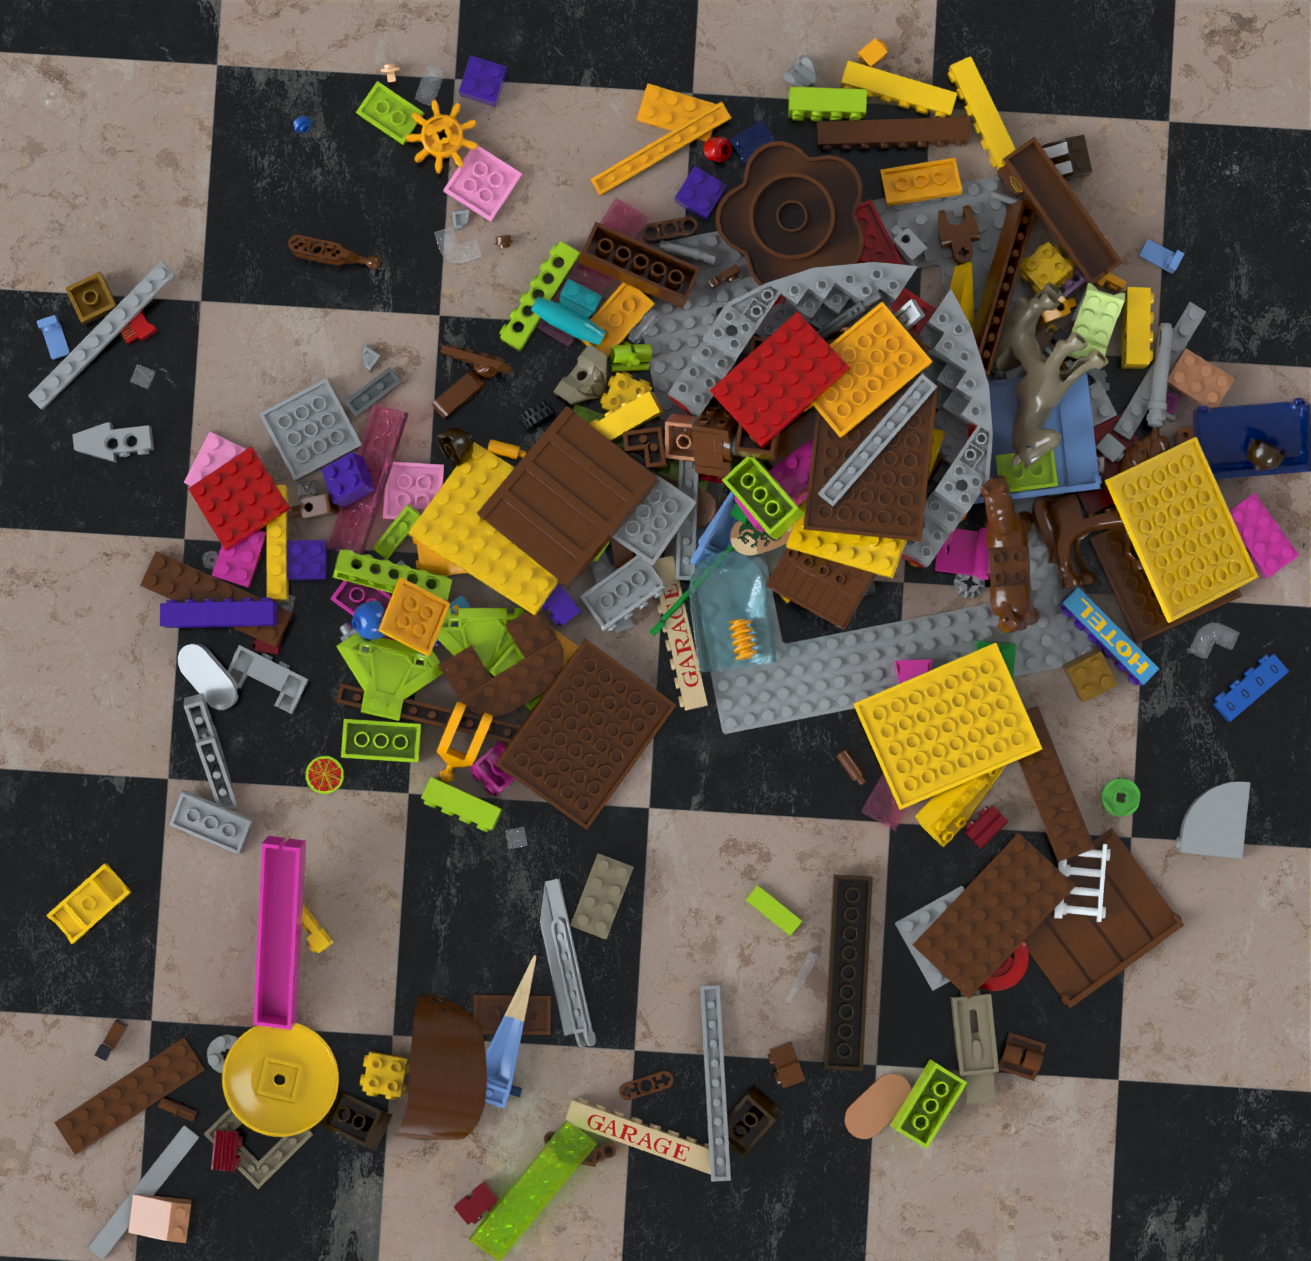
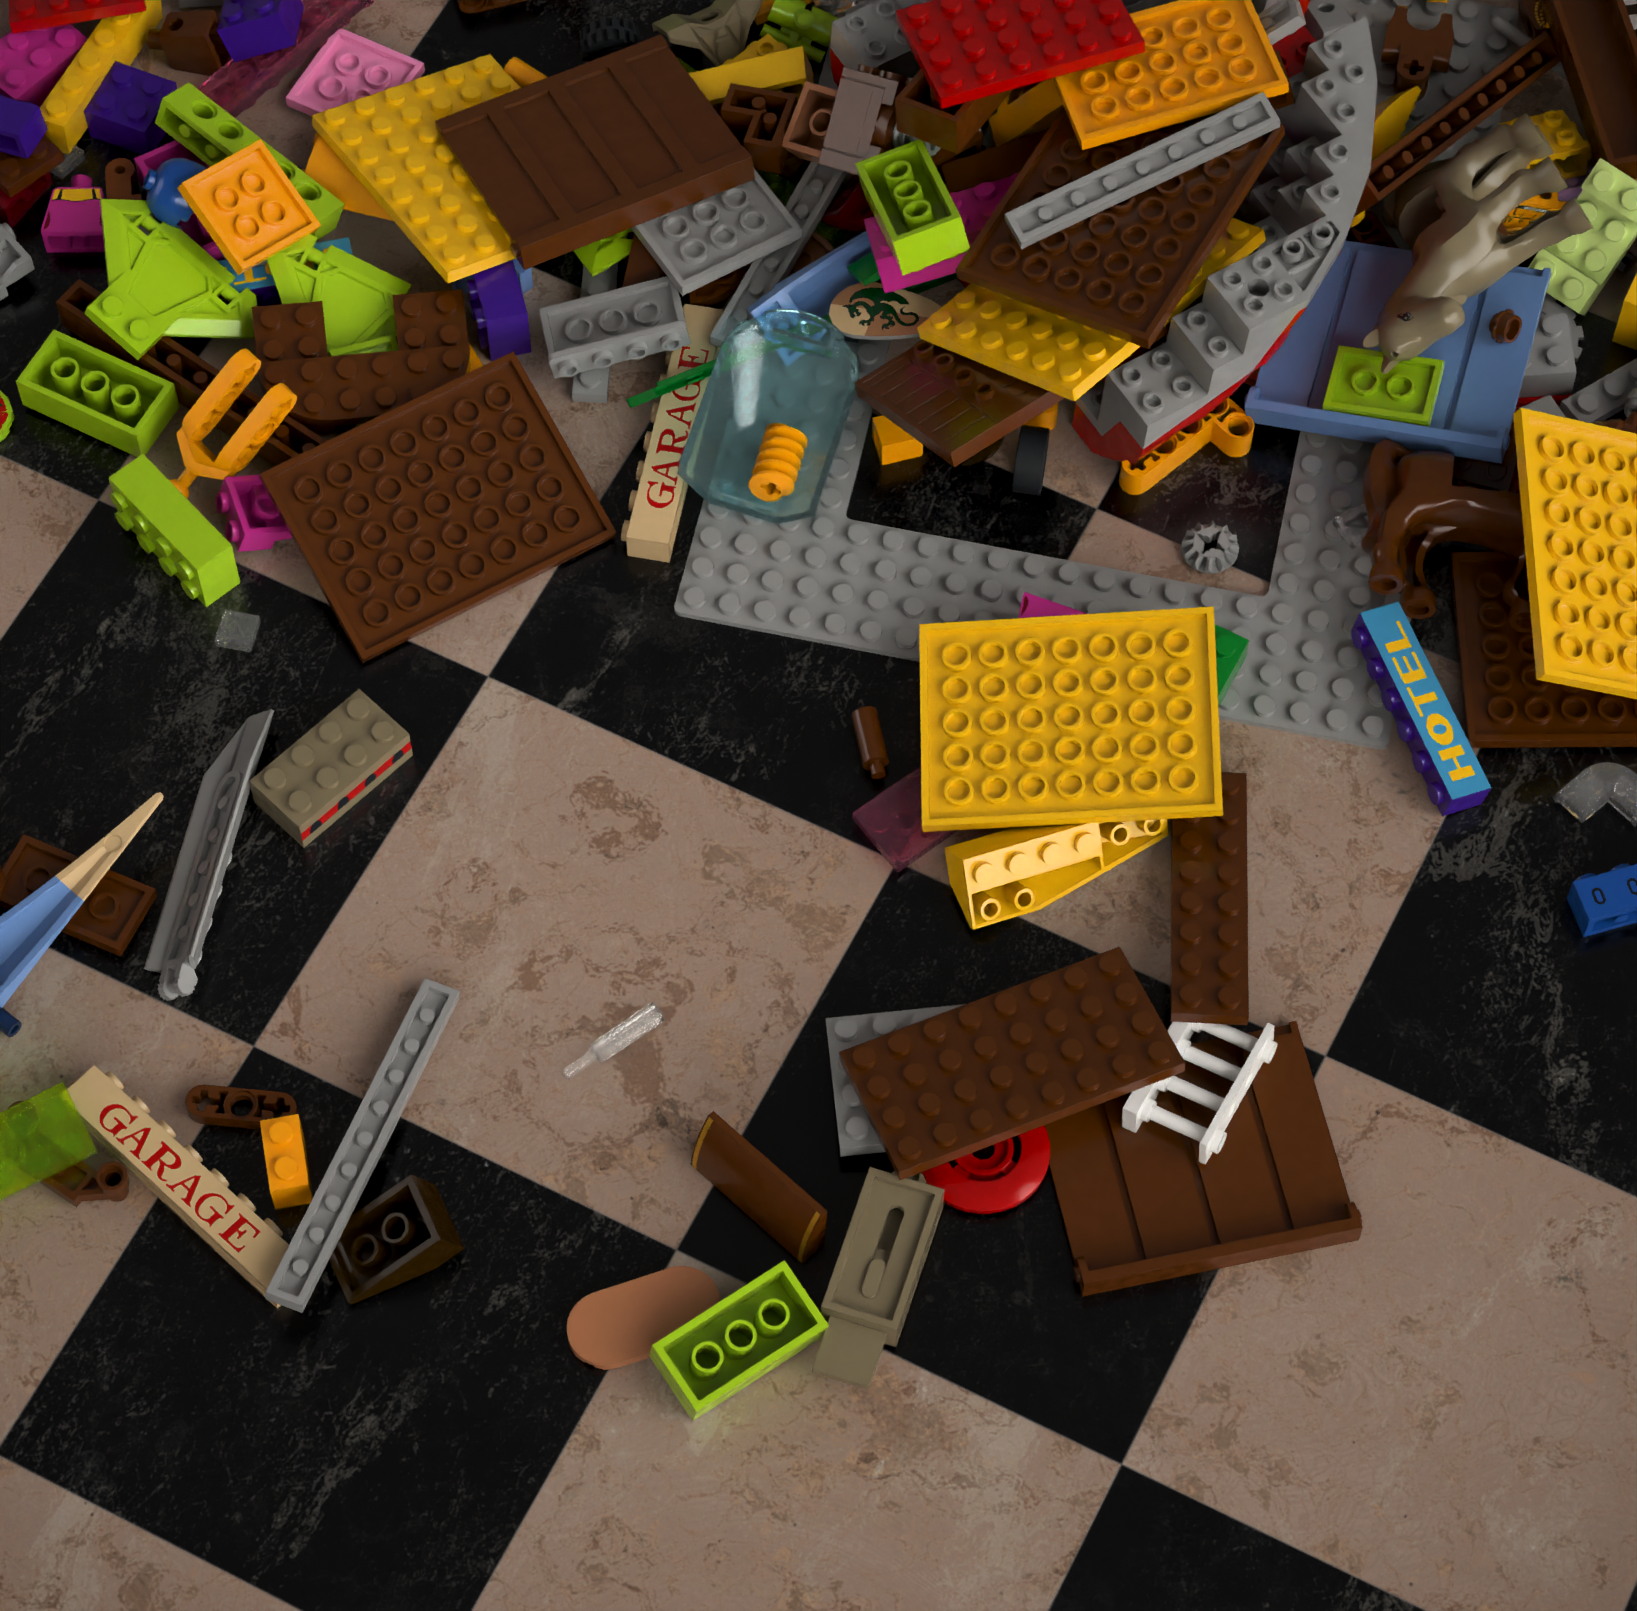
camera: 20 degrees right, 25 degrees down
(313, 637) = (74, 218): none -> dark pink torso
(324, 607) = (121, 180): none -> dark orange leg
(396, 532) = (295, 122): lime tile -> none
(457, 445) = (459, 39): dark brown cylinder -> none
(682, 1105) = (286, 1161): none -> light orange brick
(773, 910) = (619, 915): lime tile -> none
(786, 1064) = (509, 1170): reddish brown brick -> none
(847, 972) = (697, 1060): dark brown brick -> none
(904, 1026) = (759, 1188): none -> reddish brown slope
(966, 554) = (1227, 495): dark pink door -> none
(986, 826) = (1065, 925): dark red brick -> none
(1008, 558) = (1300, 463): reddish brown animal -> none
(1021, 1056) = (953, 1337): reddish brown plate -> none
(1076, 415) = (1505, 326): none -> reddish brown plate
(1089, 675) = (1361, 753): pearl gold brick -> none
(1131, 799) = (1328, 996): bright green plate -> none
(1216, 822) = (1494, 1084): light grey brick -> none

